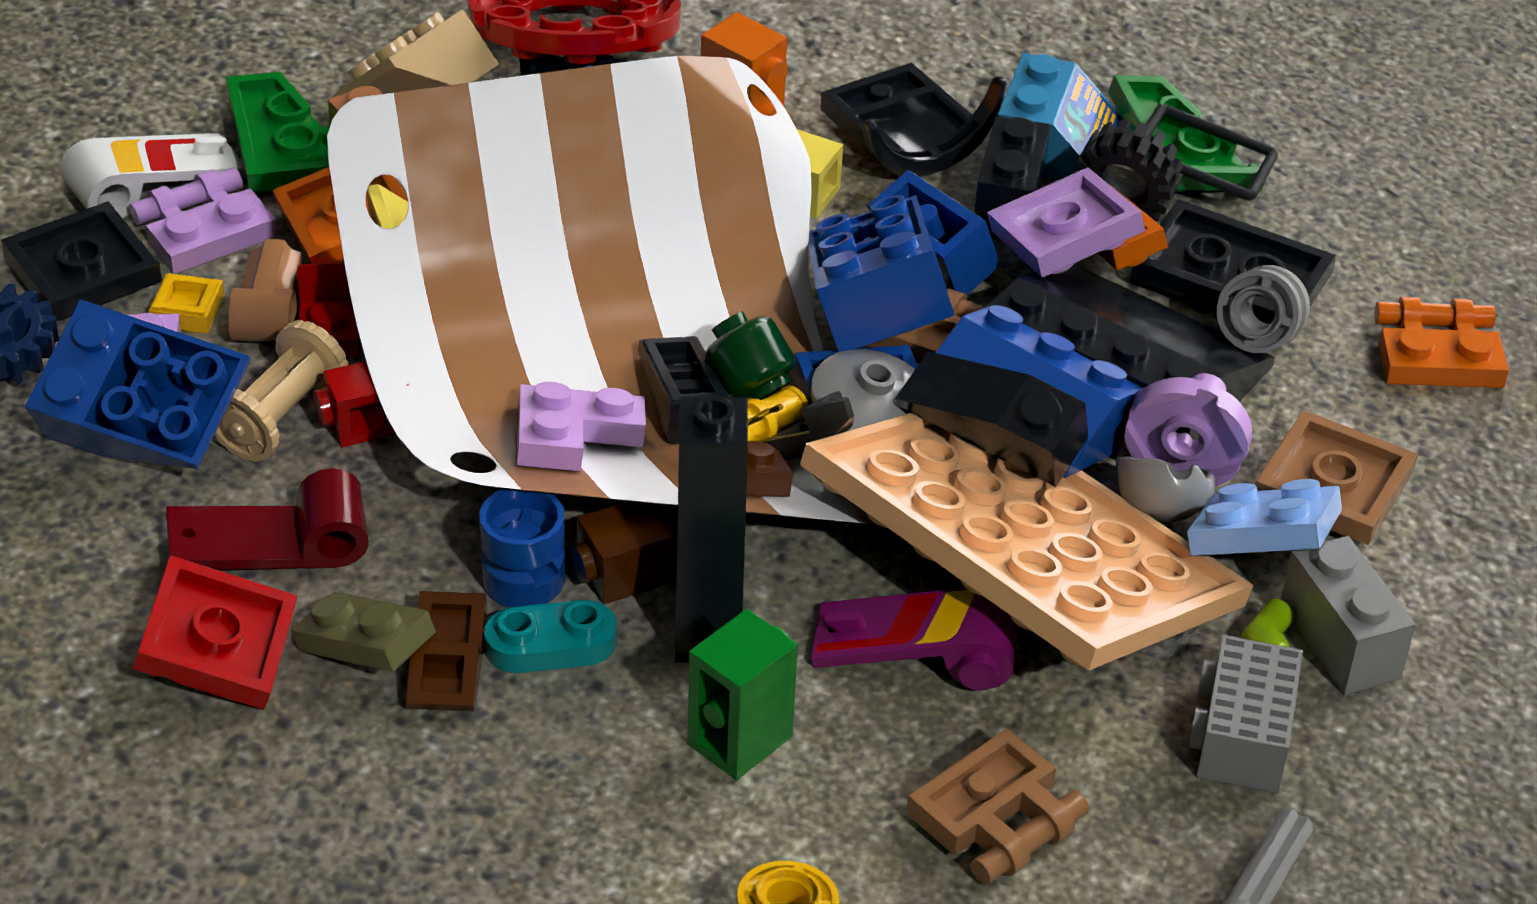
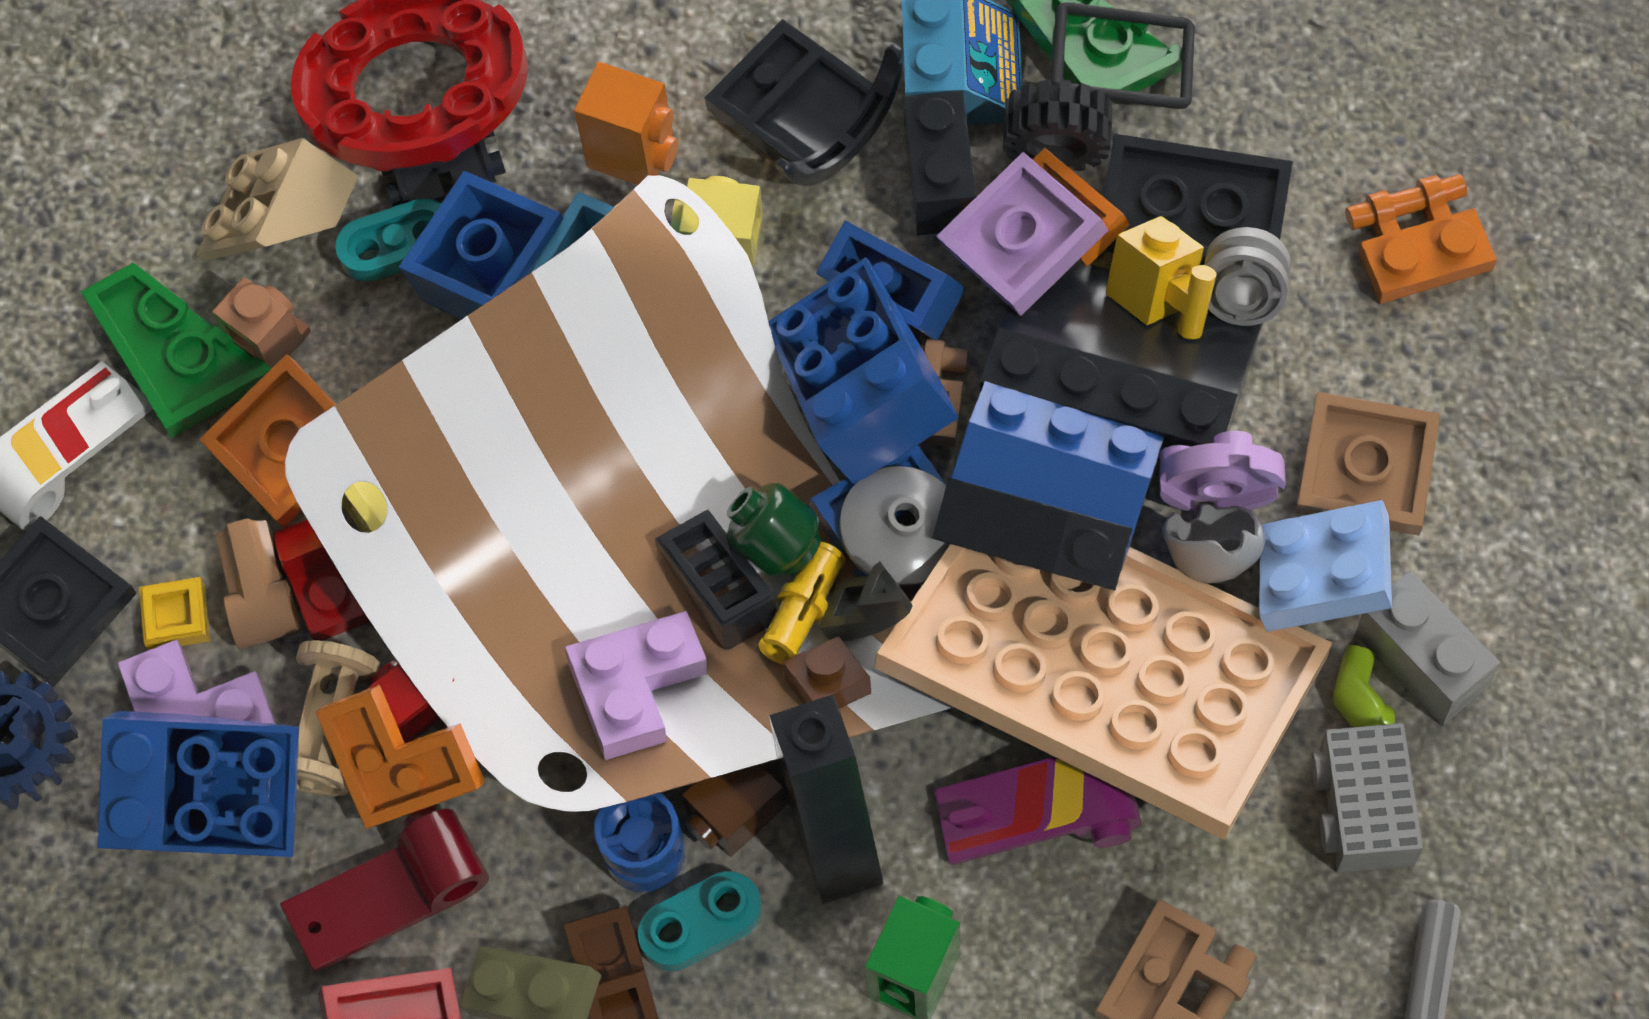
camera: 10 degrees left, 25 degrees up
(208, 231) = (152, 505): lavender plate -> none
(316, 430) = (384, 771): none -> orange plate
(1182, 283) = (1159, 274): none -> yellow brick

